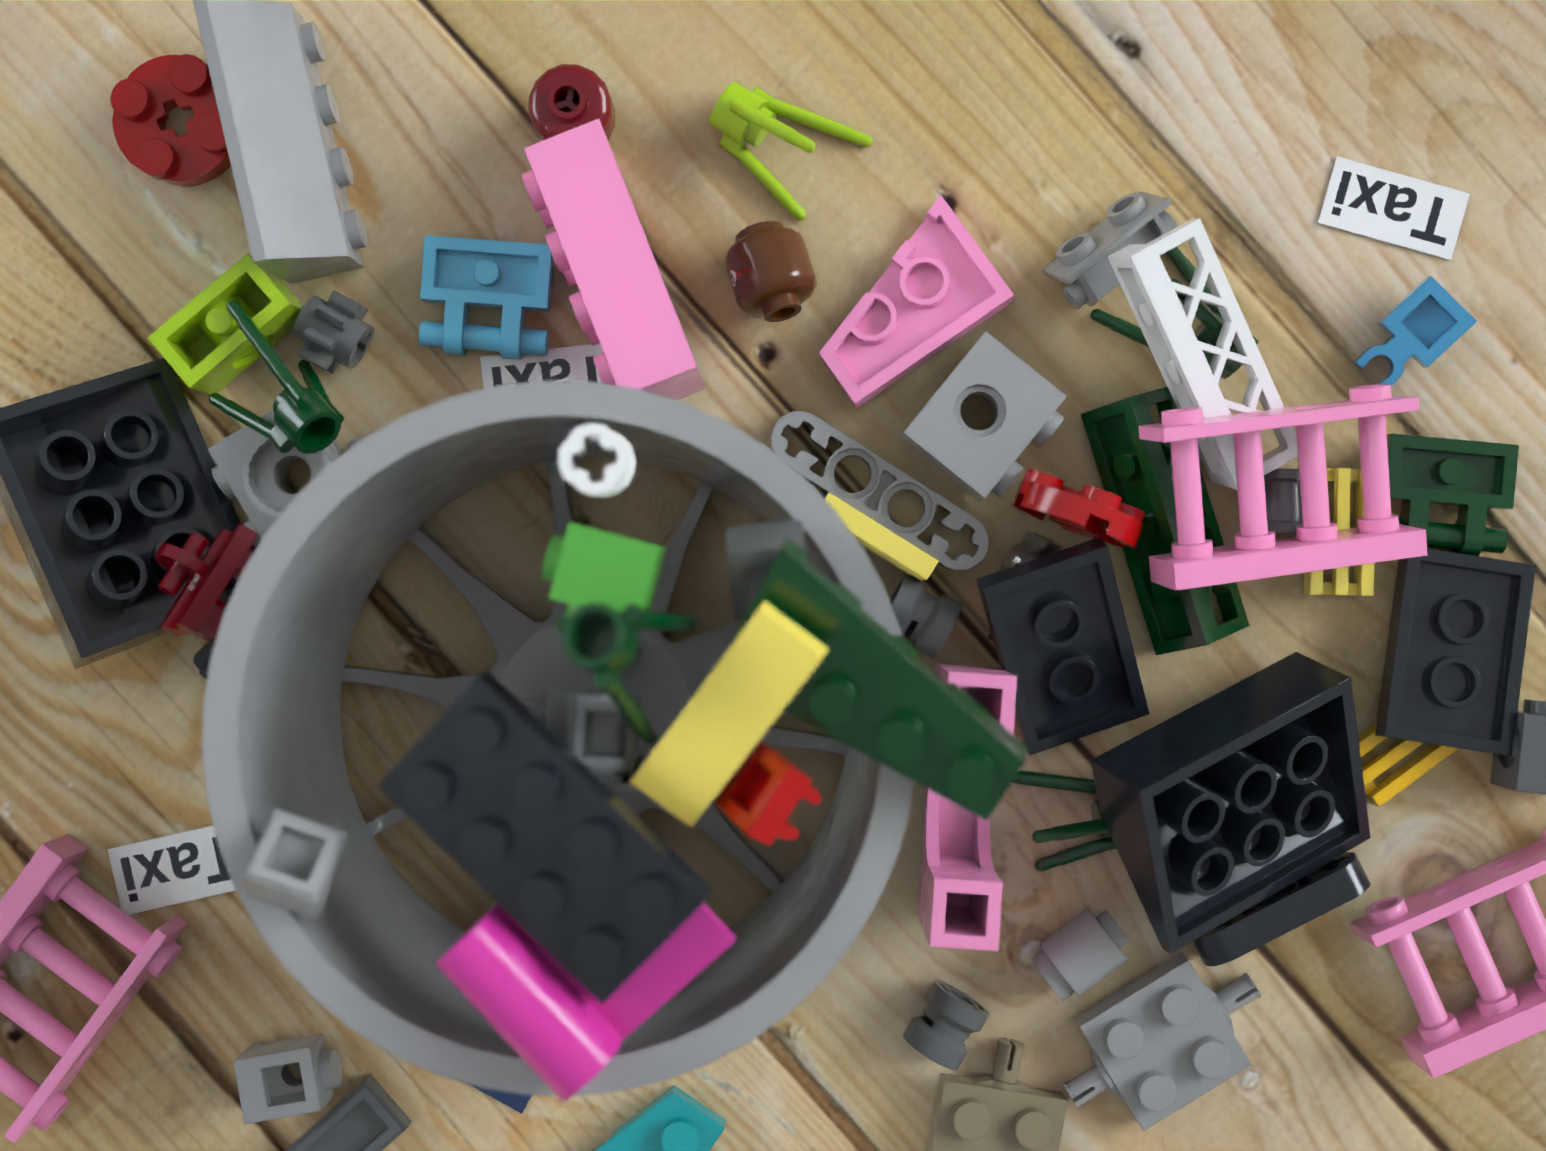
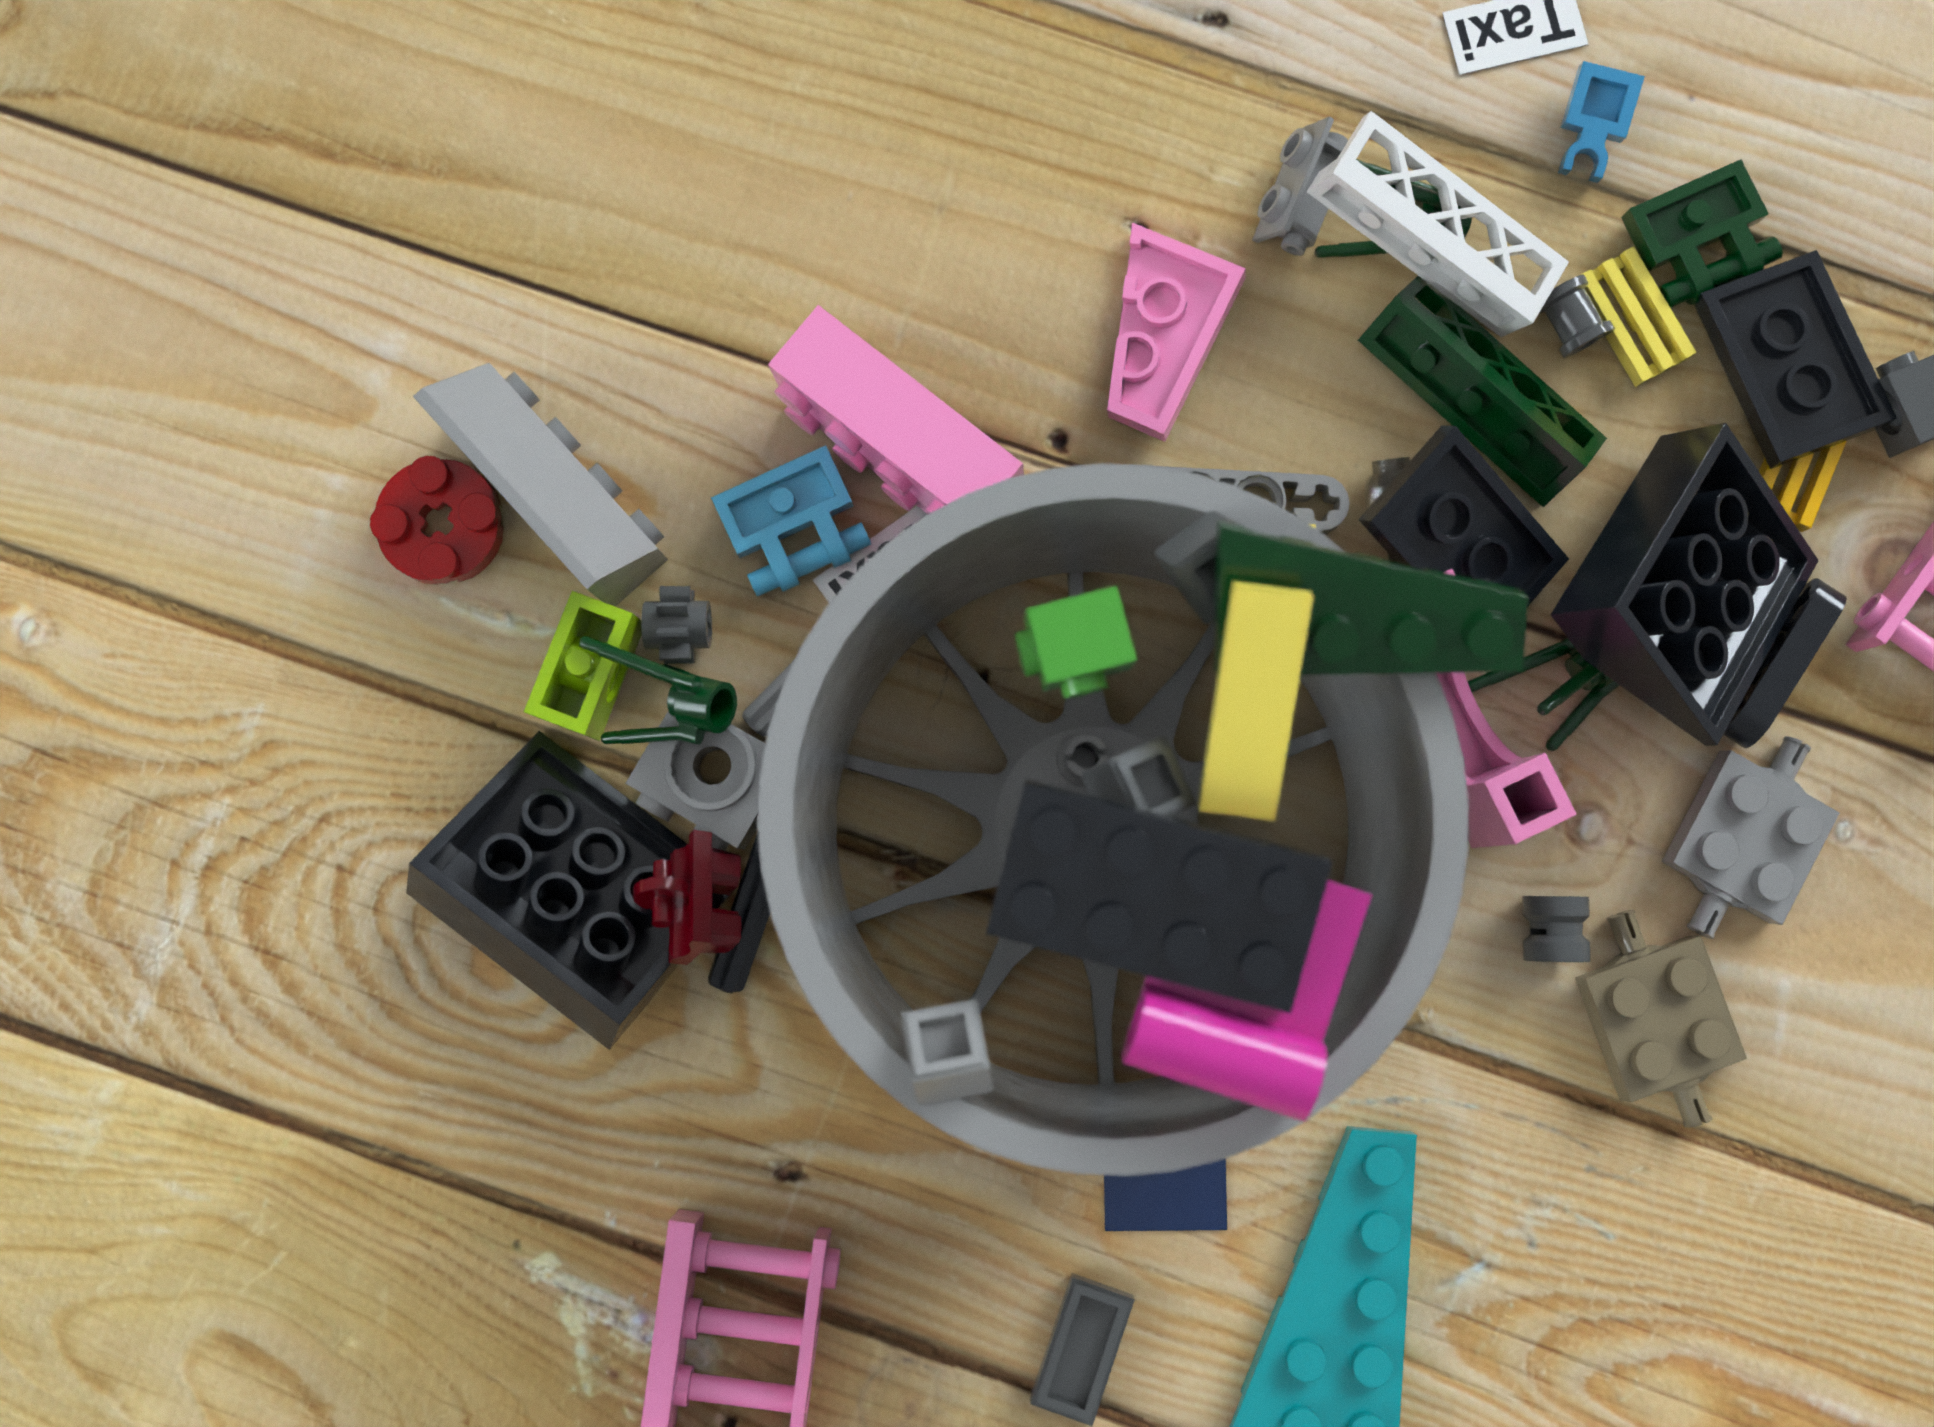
camera: 30 degrees left, 5 degrees down
(169, 870) = (798, 1180): white sticker -> none
(269, 1088) = (1000, 1336): light grey brick -> none
(560, 91) = (772, 314): dark red head -> none
(579, 446) = (1018, 528): white bush -> none
(608, 644) = (1124, 689): dark green plant -> none
(751, 115) = (932, 244): lime plant -> none
(765, 794) = (1324, 752): red tile -> none
(770, 271) = (1026, 364): reddish brown head -> none
(1022, 412) = (1307, 359): light grey brick -> none
(1081, 953) = (1635, 798): light grey brick -> none
(1086, 513) = (1410, 416): red plate -> none
(1317, 541) = (1626, 324): bright pink fence -> none

